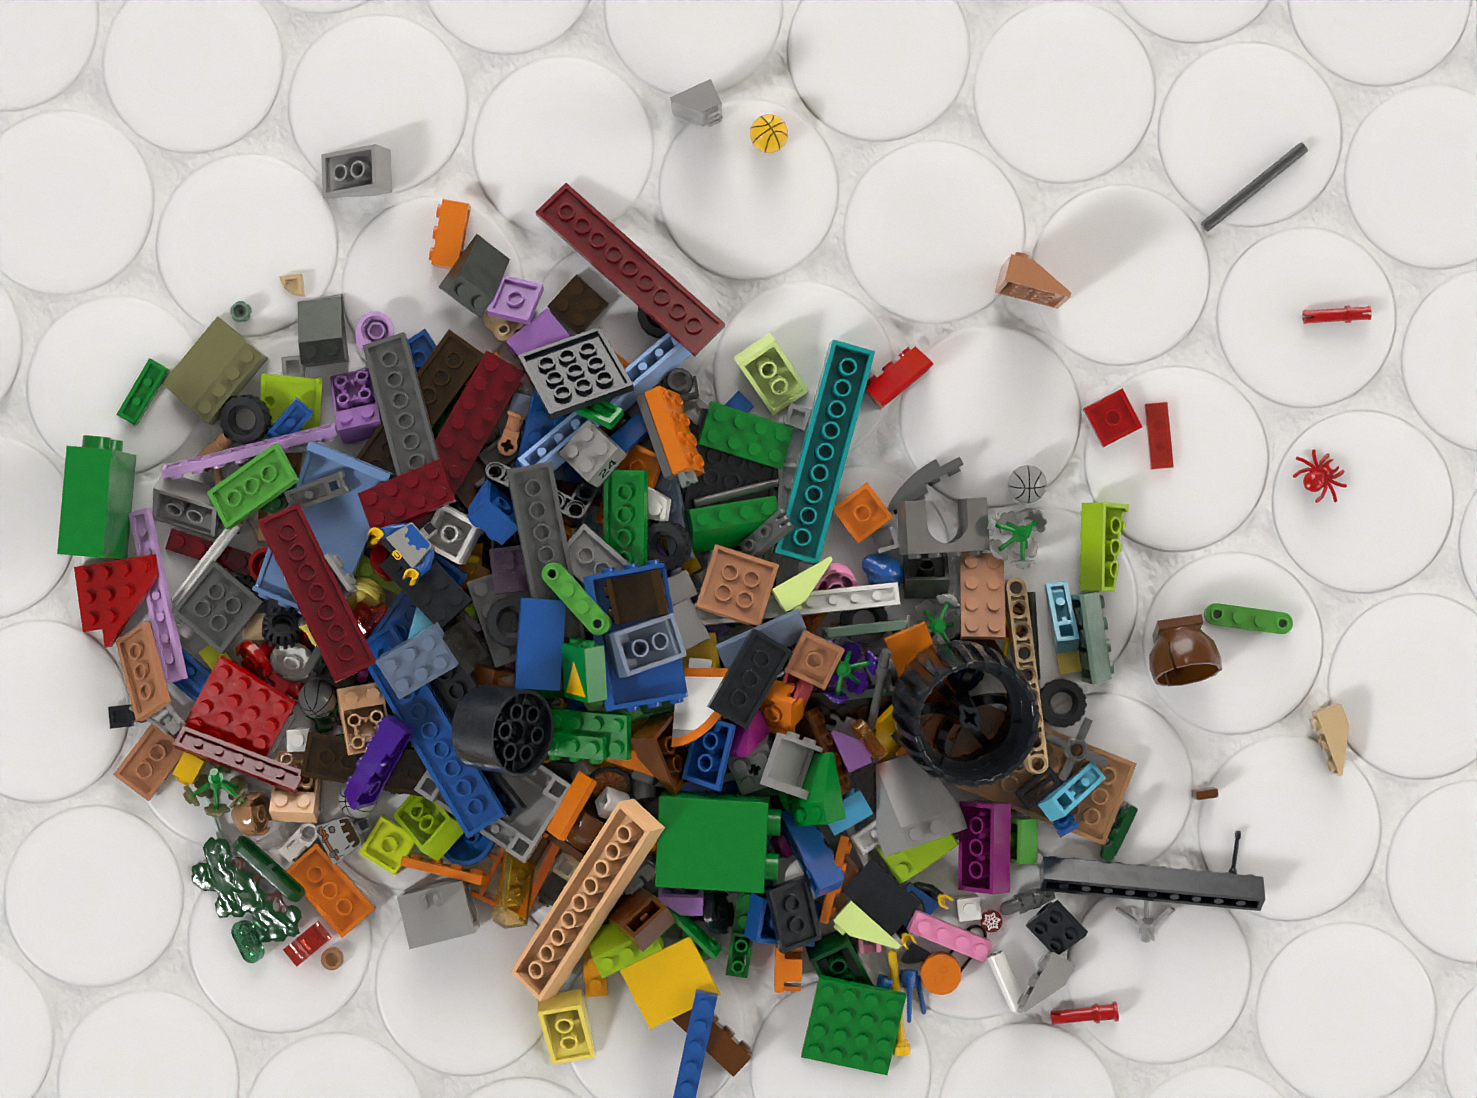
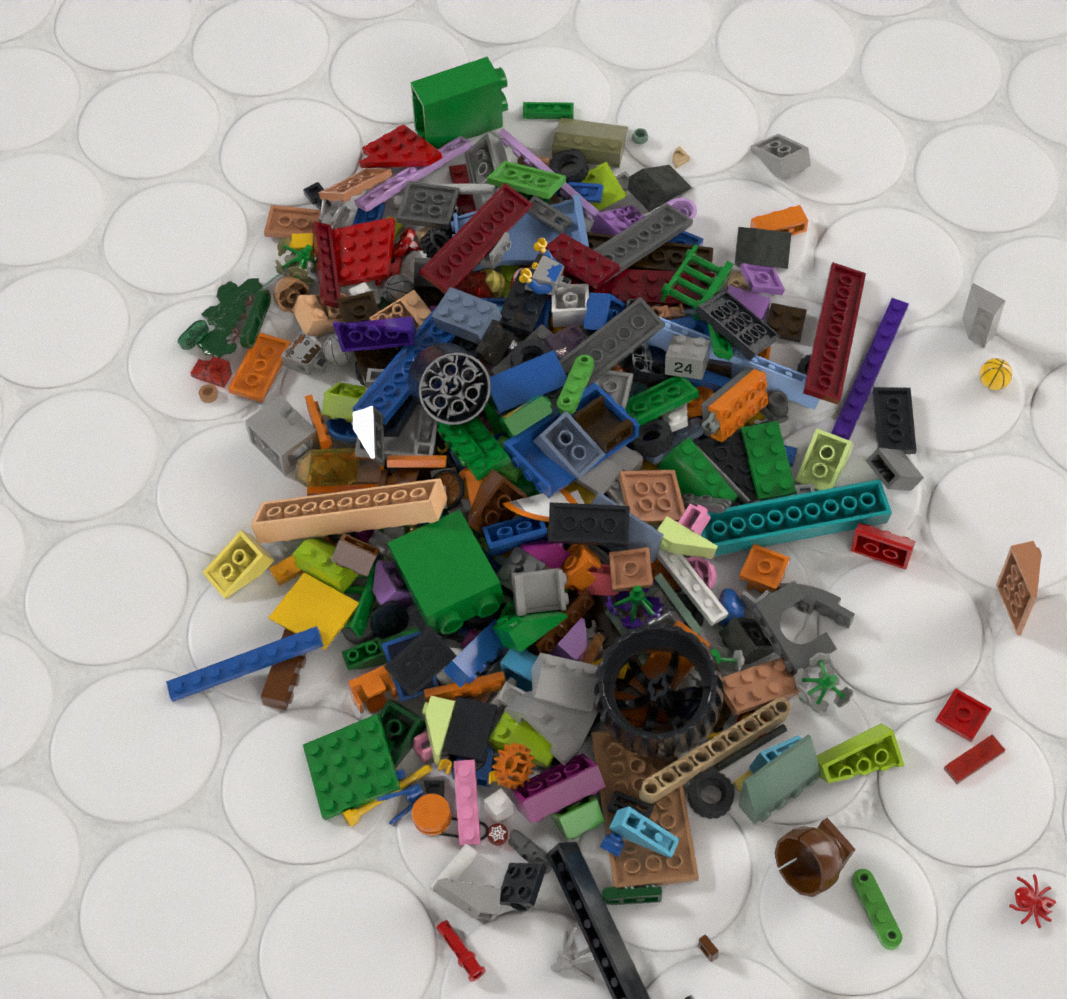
camera: 55 degrees right, 30 degrees down
(297, 844) = (283, 331): white piece -> none
(387, 845) = (314, 384): neon yellow tile -> none
(506, 363) = (714, 283): none -> green fence
(517, 840) = (369, 429): none -> slope
(685, 255) = (870, 369): none -> dark purple plate
(761, 271) = (894, 419): none -> black plate
(787, 559) = (695, 518): none -> bright pink window
(826, 314) = (894, 469): none -> dark grey brick
(894, 789) = (564, 682): none -> light grey slope
(948, 880) = (514, 765): none -> orange gear
(1027, 484) = (867, 675): light grey piece -> none
(1084, 753) = (681, 809): dark grey bar -> none

